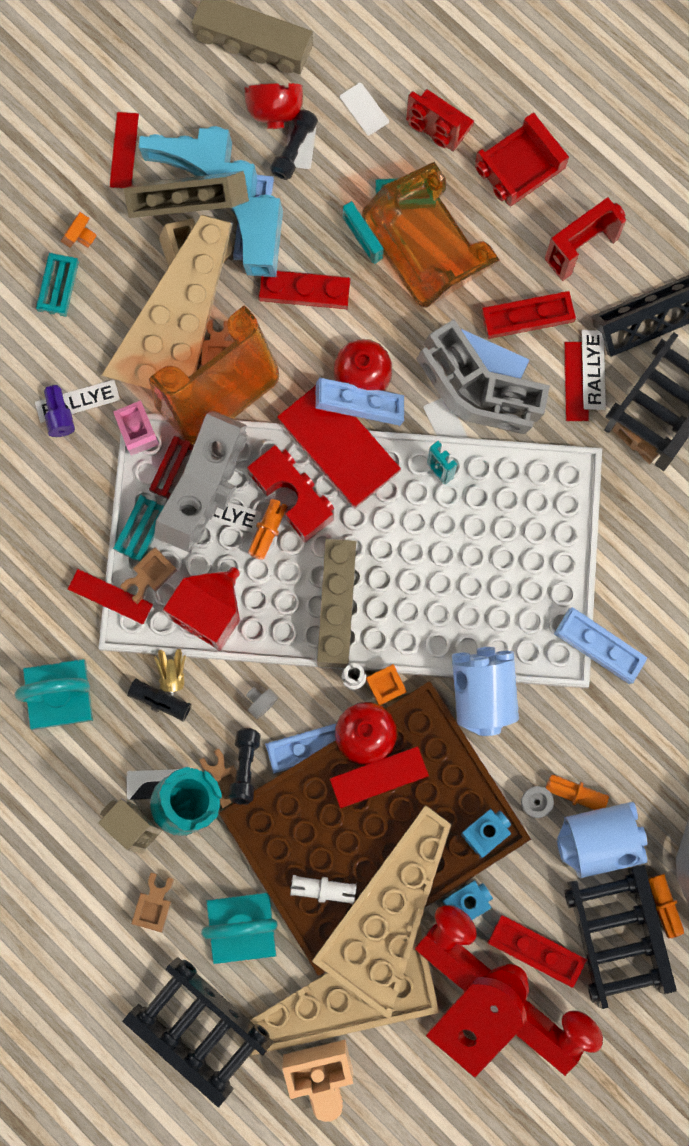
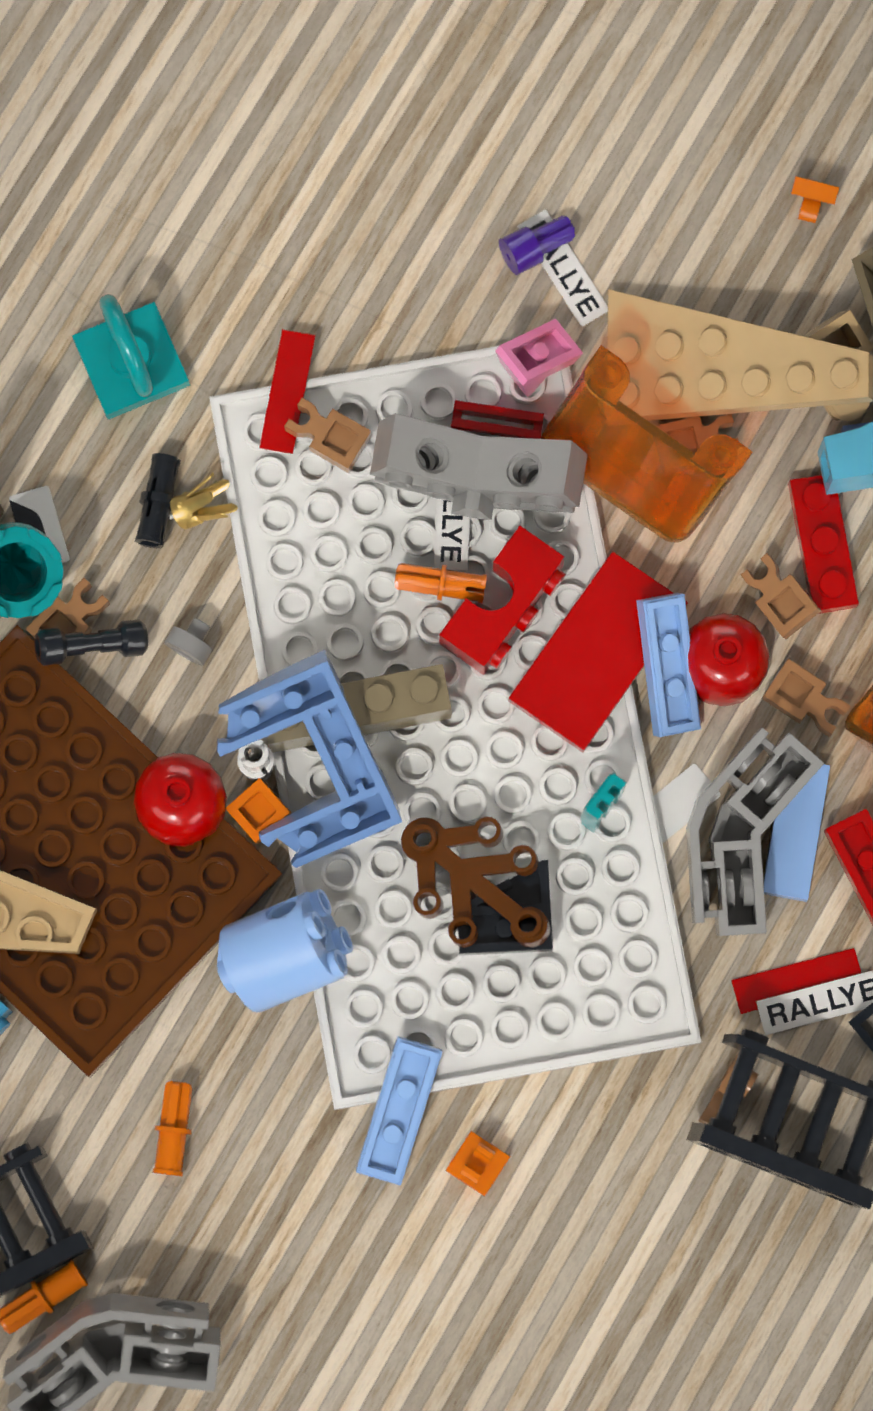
camera: 75 degrees right, 0 degrees up
(52, 308) = (728, 207): teal tile -> none
(152, 505) = (392, 388): teal tile -> none
(206, 606) = (300, 525): red piece -> none
(294, 749) = (136, 709): light blue tile -> none
(337, 321) = (784, 600): none -> medium nougat plate
(379, 777) = (121, 834): red tile -> none
(399, 328) = (798, 695): none -> medium nougat plate
(399, 615) = (362, 797): none -> medium blue wedge
(465, 560) = (468, 876): none -> reddish brown plant
(478, 841) = (58, 1004): dark azure brick -> none
(495, 543) = (495, 930): none -> black wing
(544, 799) = (135, 1064): light grey tile -> none
(602, 840) = (108, 1177): light blue cylinder -> none
(644, 606) = (477, 1163): none -> orange tile

